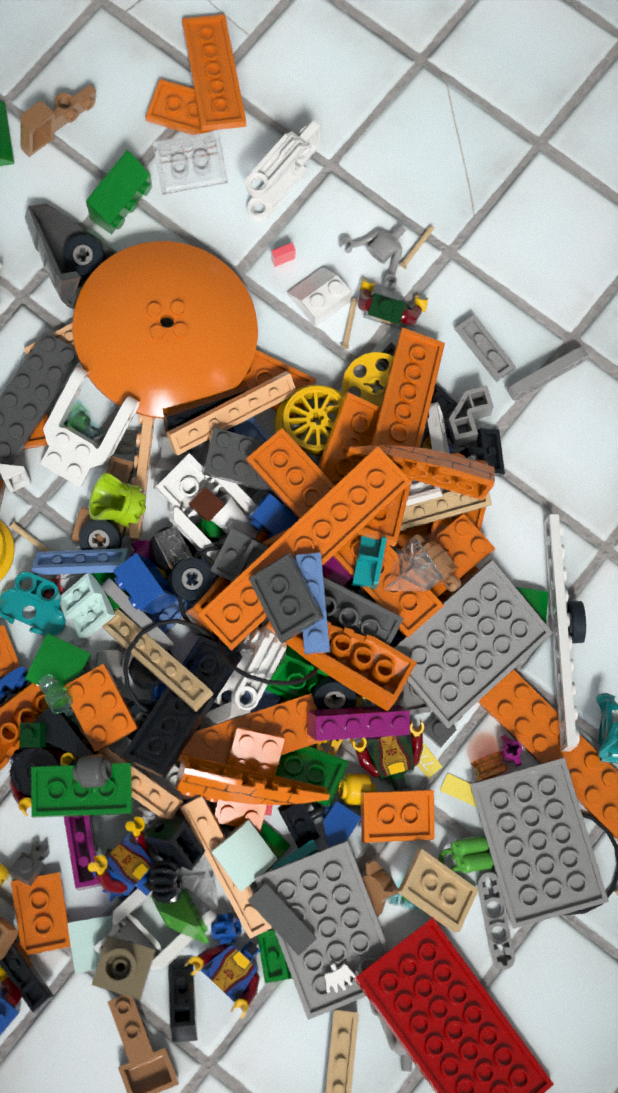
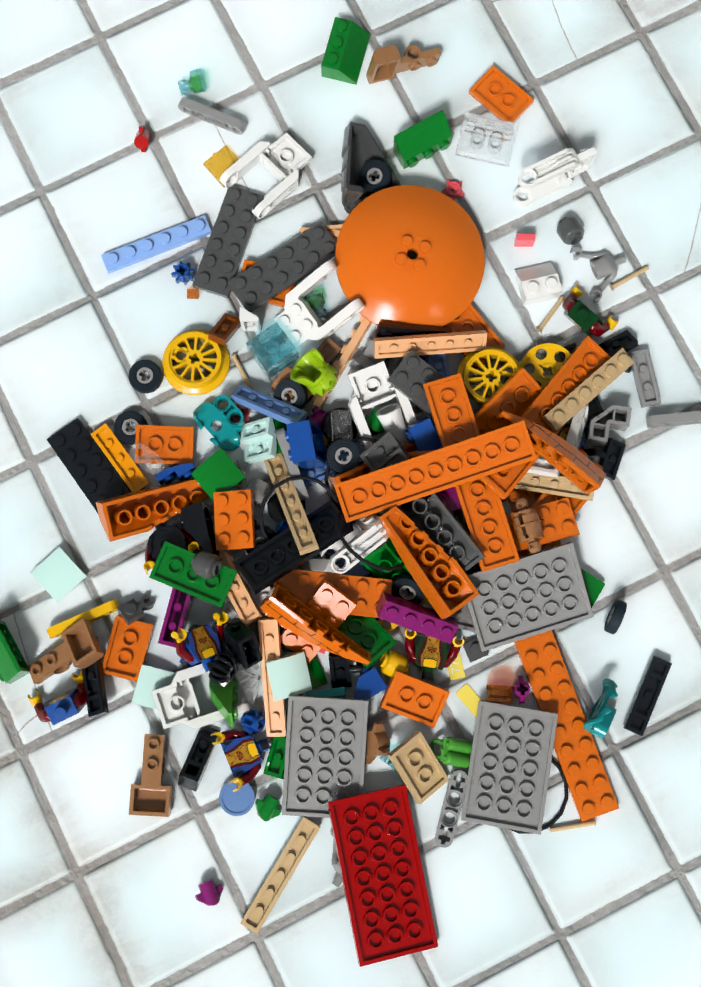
camera: 30 degrees right, 5 degrees up
(32, 735) = (177, 517): dark green plate -> none
(55, 498) = (272, 350): none -> clear light blue brick
(56, 695) = (206, 497): clear light blue piece -> none
(128, 443) = (344, 332): clear smoke tile -> none
(137, 967) = (176, 715): dark tan plant -> none
(178, 228) = (453, 185): none -> coral plate
(206, 504) = (379, 405): copper slope -> none
(213, 73) = (536, 77): orange plate -> none
(249, 1030) = (236, 802): none -> medium blue piece
(282, 919) = (294, 734): dark grey tile -> none
(286, 598) = (403, 503): dark grey tile -> none
(288, 1020) = (267, 808): none -> green piece
(315, 637) = (421, 516): medium blue plate -> none
(329, 223) = (570, 231): none -> dark grey head
(338, 976) = (317, 794): white piece -> none
(369, 562) = (478, 503): teal panel -> none
(413, 570) = (508, 524): clear slope -> none
(430, 386) = (587, 390): none -> tan plate
(442, 325) = (623, 340): none -> black plate
(561, 641) = (598, 624): white plate -> none

